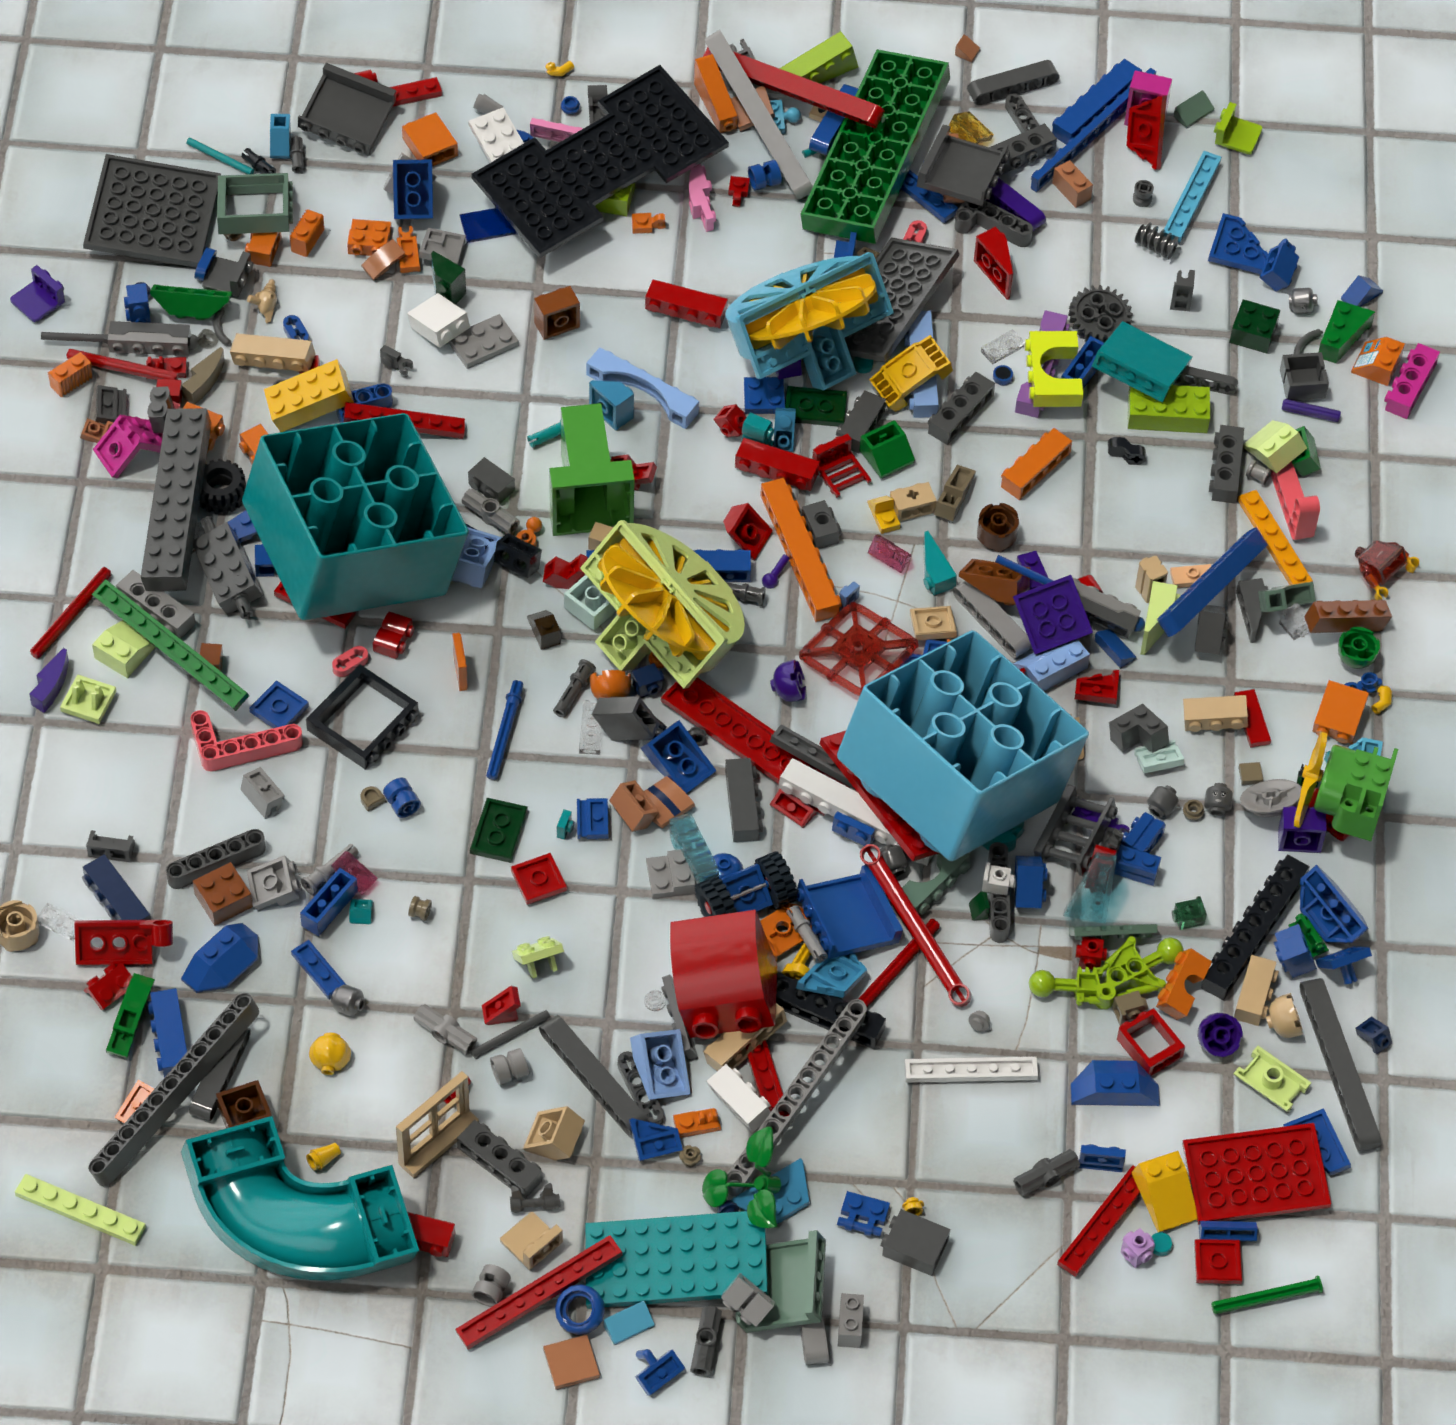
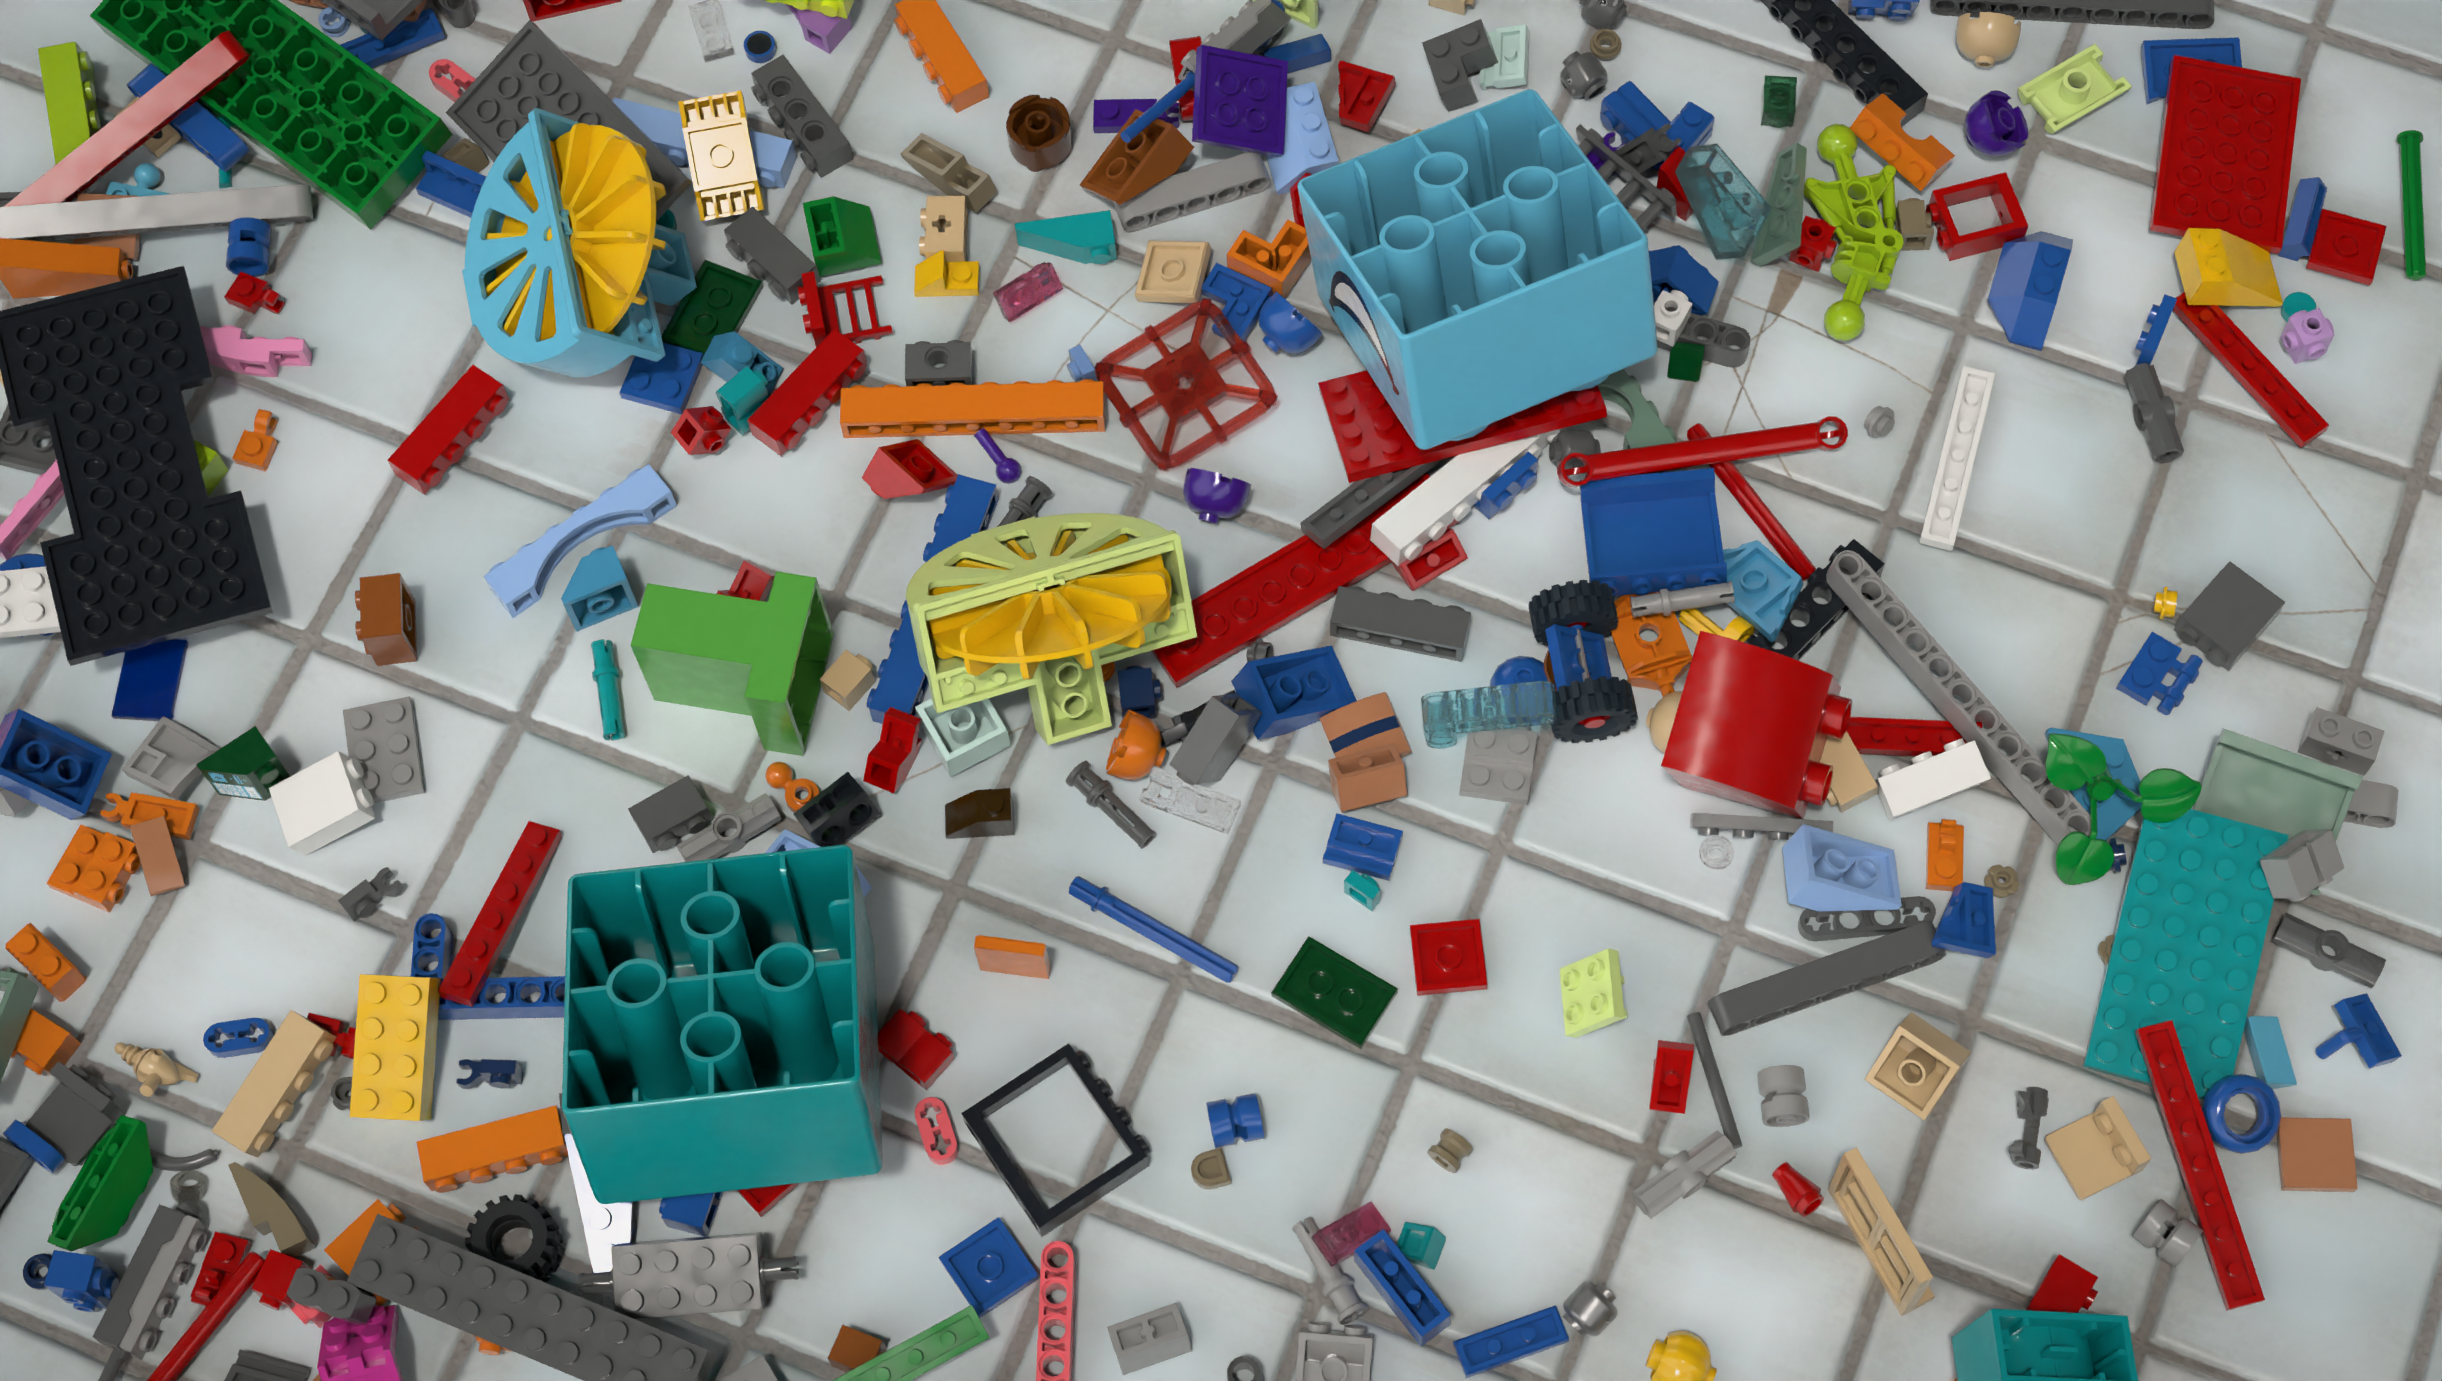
camera: 65 degrees left, 10 degrees up
(477, 1134) = (1983, 1119): dark grey brick -> none
(1256, 990) = (1931, 62): tan brick -> none

